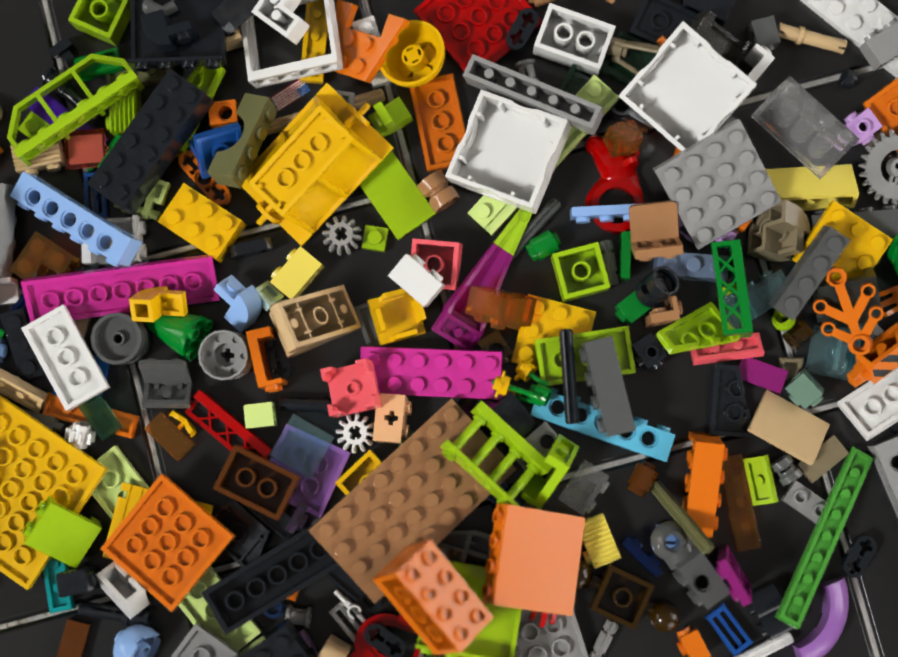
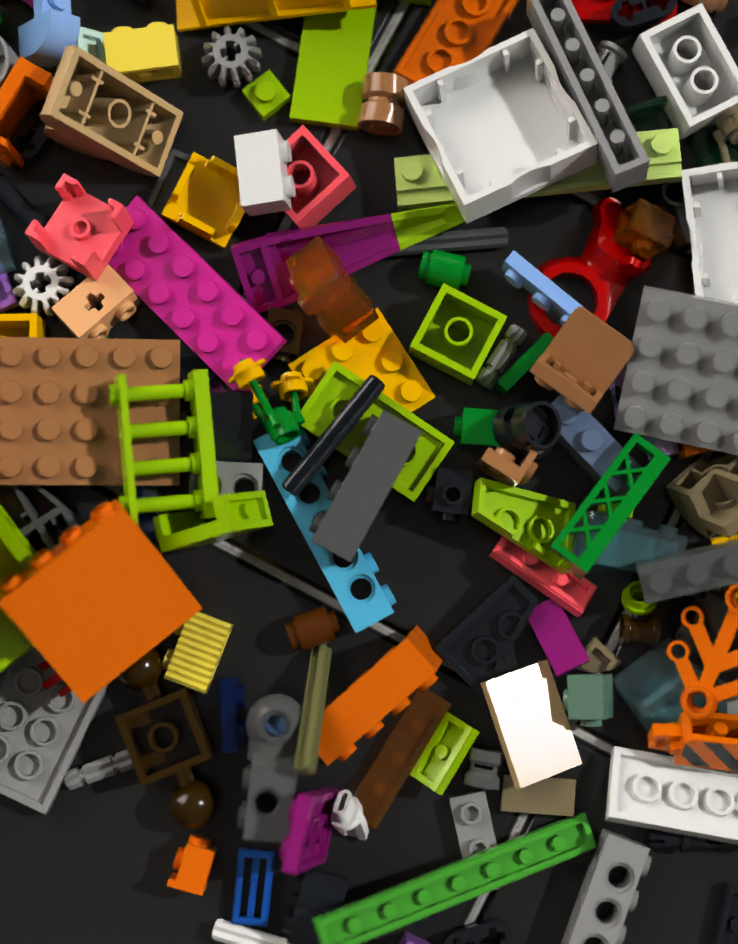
camera: 30 degrees right, 0 degrees up
(584, 488) = (237, 578): clear bracket -> none
(743, 552) = (348, 816): none -> white piece

